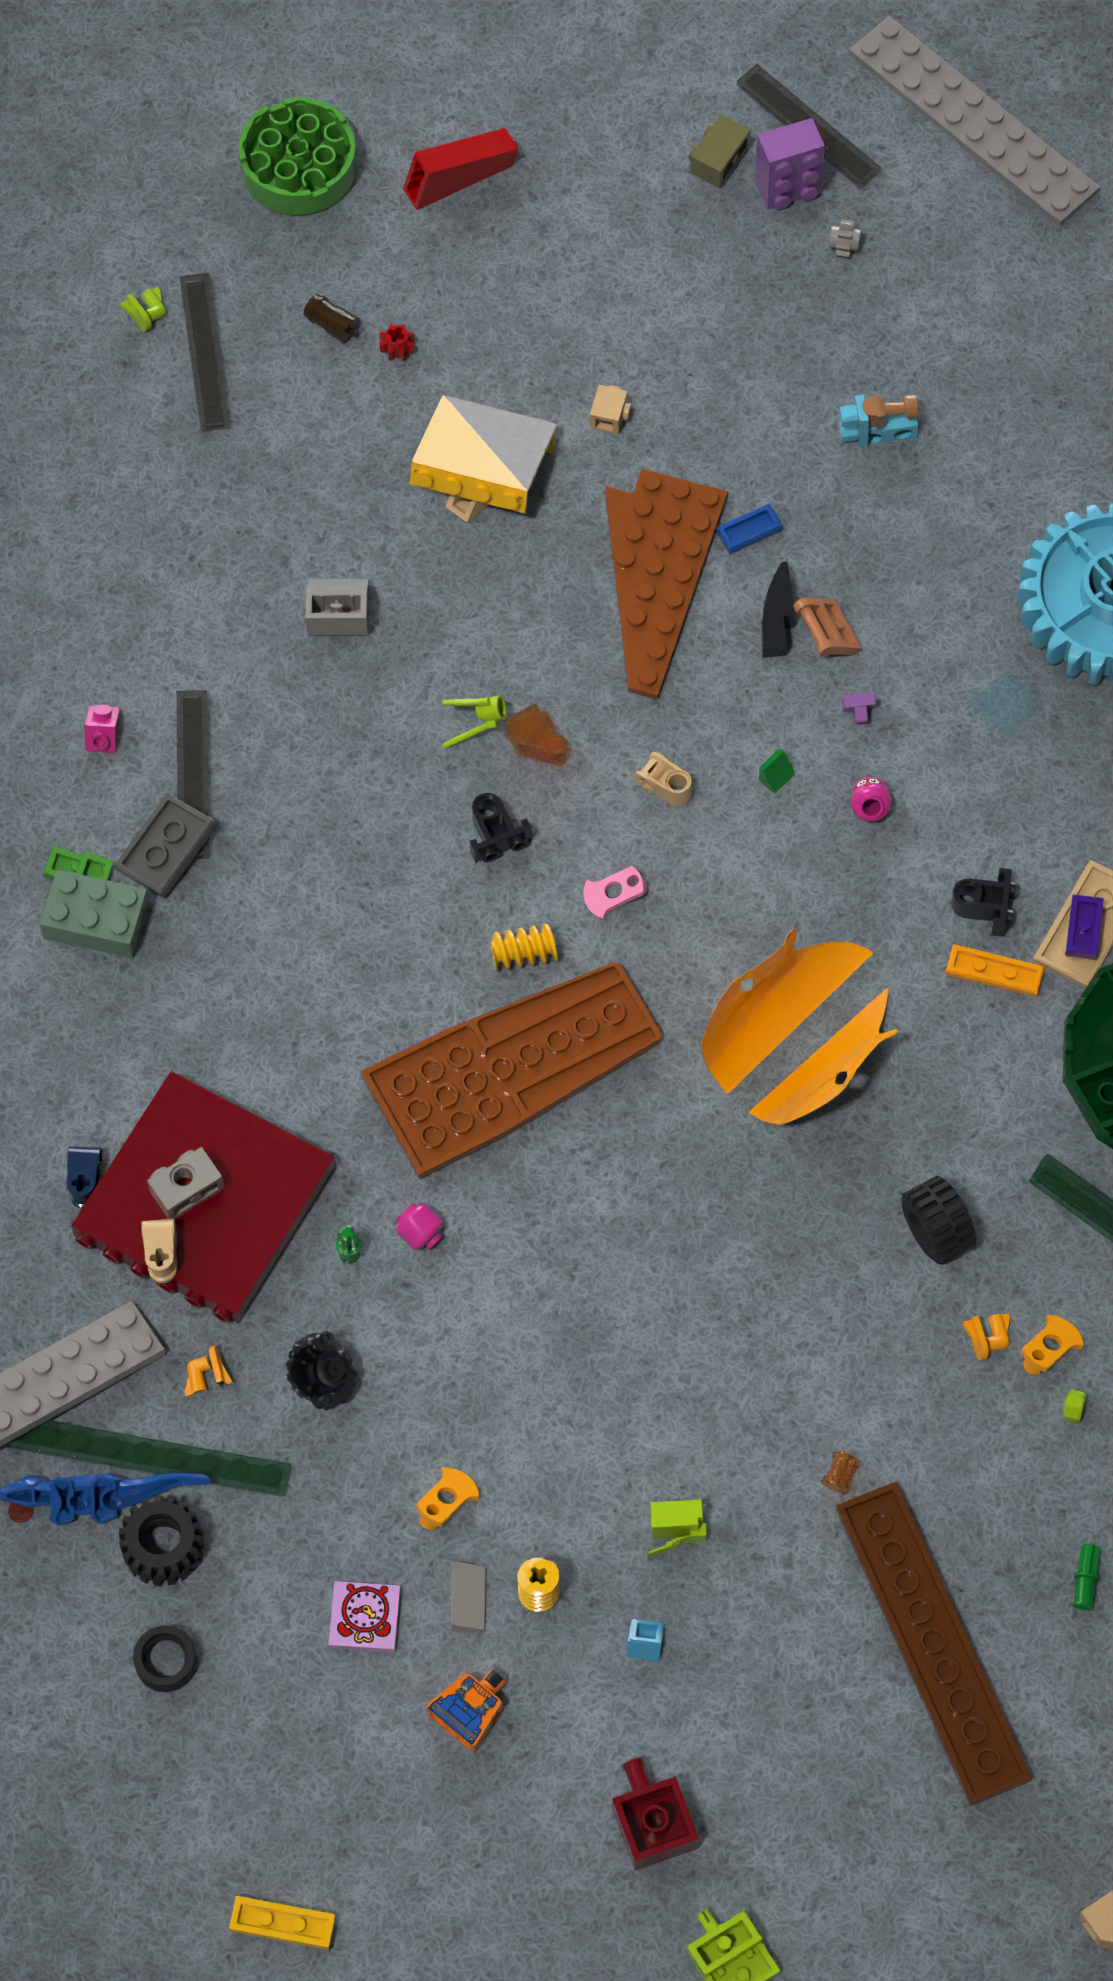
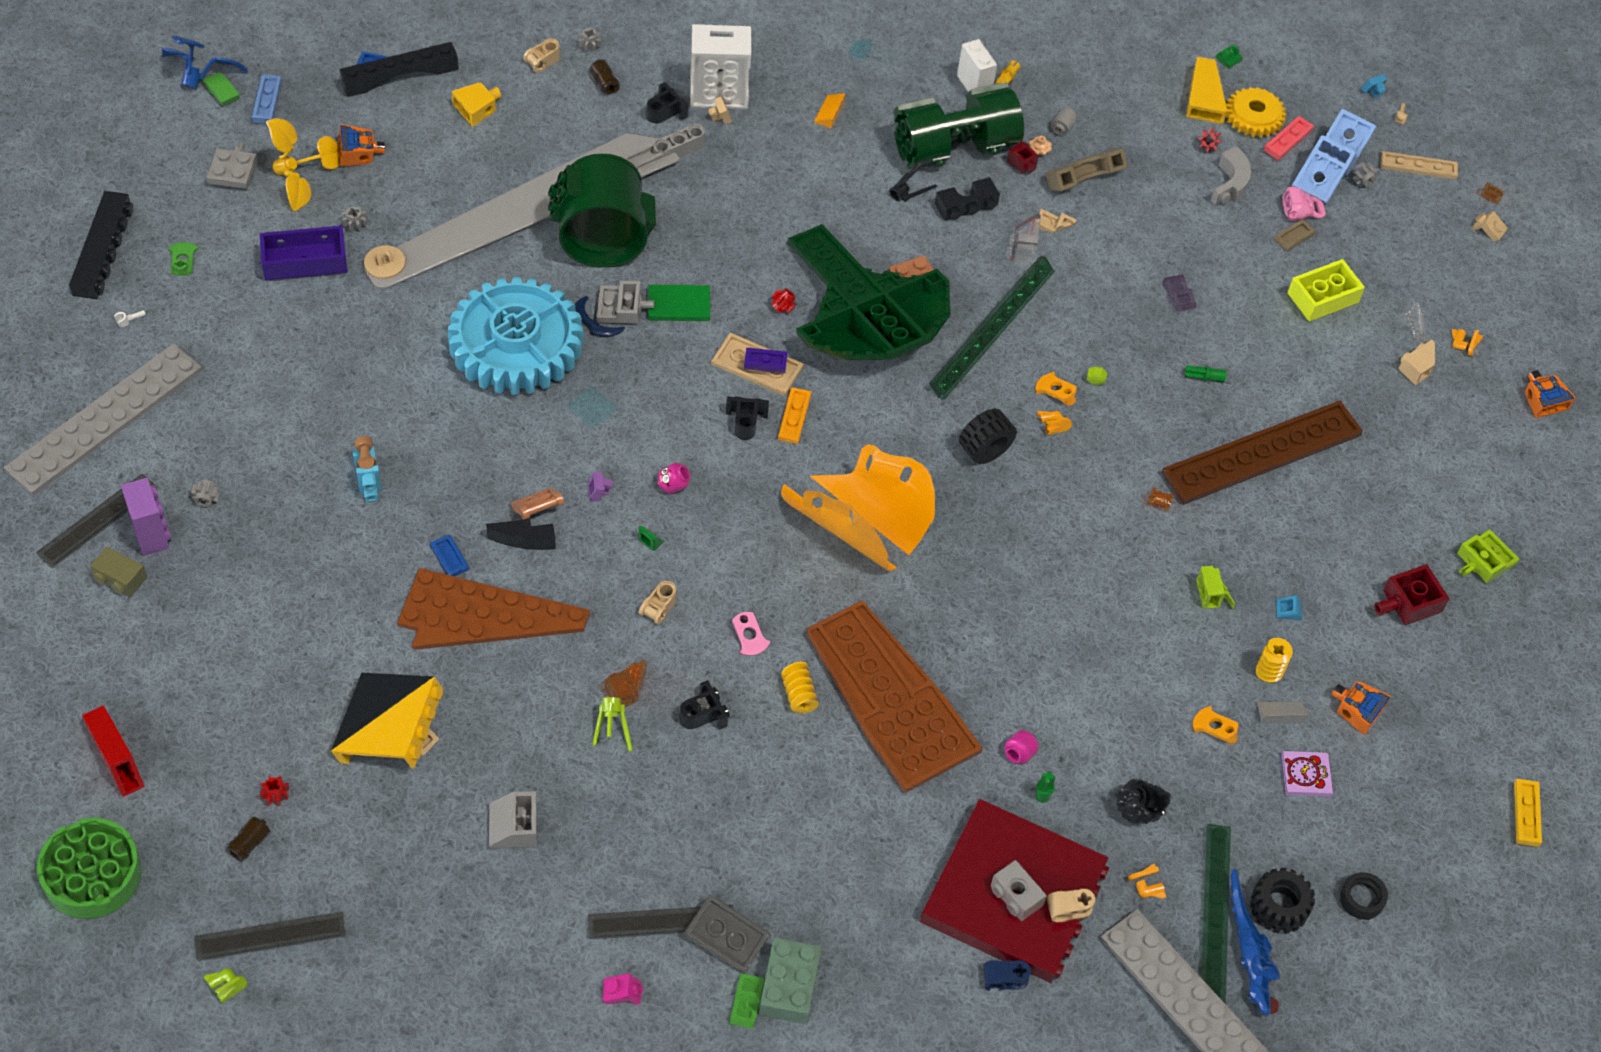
camera: 100 degrees left, 10 degrees down
(609, 409) = (345, 643): tan brick -> none

